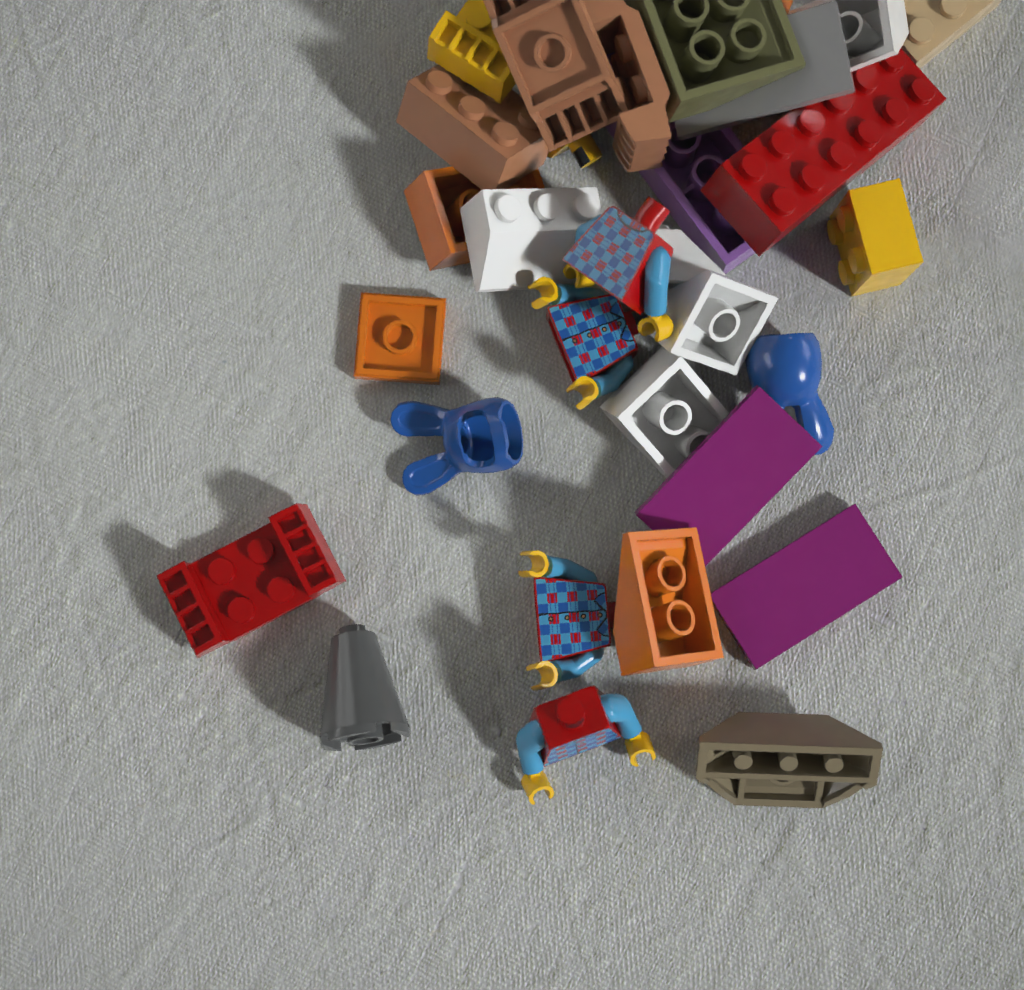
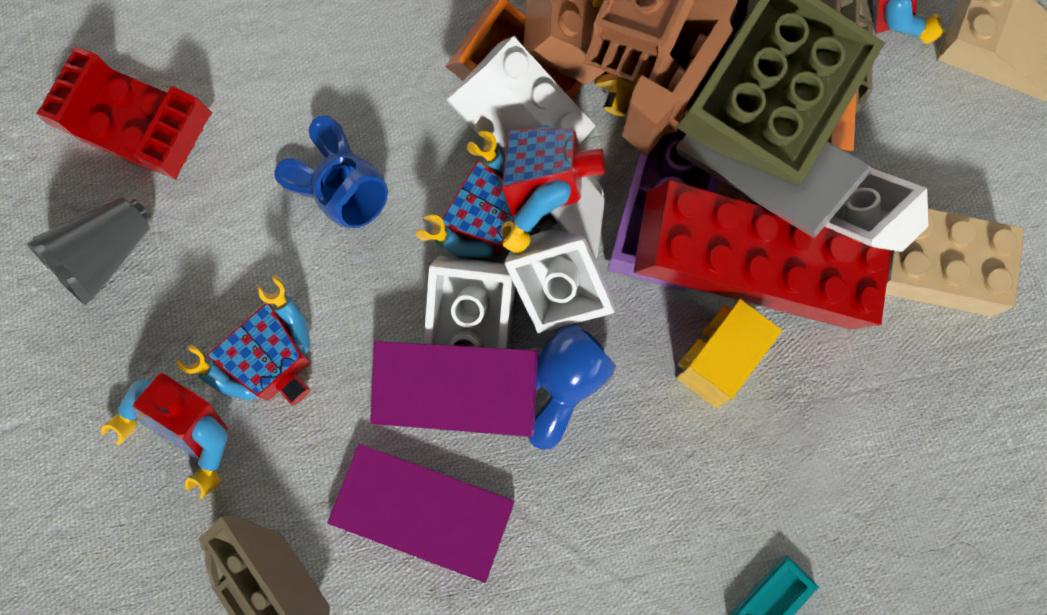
camera: 55 degrees right, 5 degrees down
(400, 338) = (382, 86): orange tile -> none
(664, 603) = (317, 409): orange slope -> none

